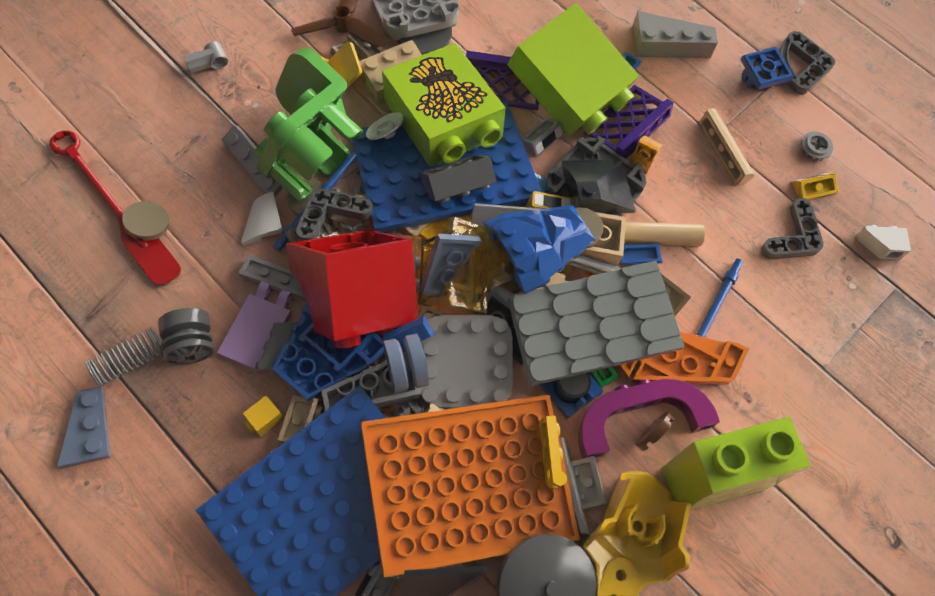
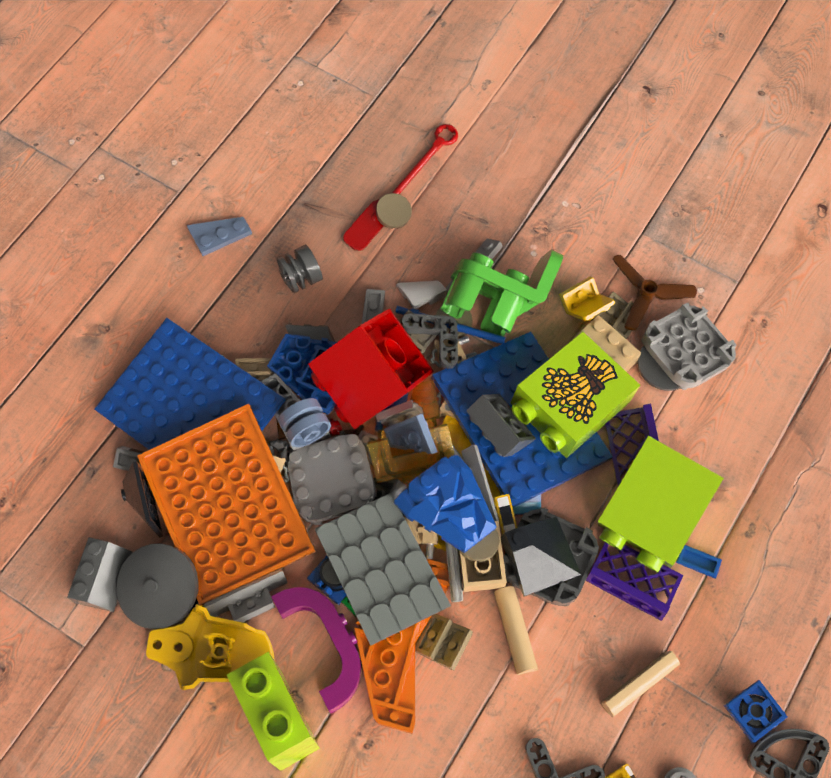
camera: 85 degrees right, 0 degrees up
(95, 372) = (259, 228): light grey piece -> none
(211, 56) = (564, 204): light grey piece -> none
(253, 327) = (327, 312): lavender tile -> none
(262, 416) = (252, 342): yellow brick -> none
(385, 126) = (534, 353): white dish -> none
(417, 326) = (339, 424): blue tile -> none
(543, 136) = (587, 498): light grey slope -> none
(551, 452) = (260, 561): yellow plate -> none
(640, 254) = (486, 614): blue tile -> none
(646, 153) = (598, 597): light orange slope -> none
(655, 431) = (306, 652): reddish brown tile -> none
(672, 37) = (756, 602): light grey wedge -> none
(729, 279) = (489, 708): blue bar -> none

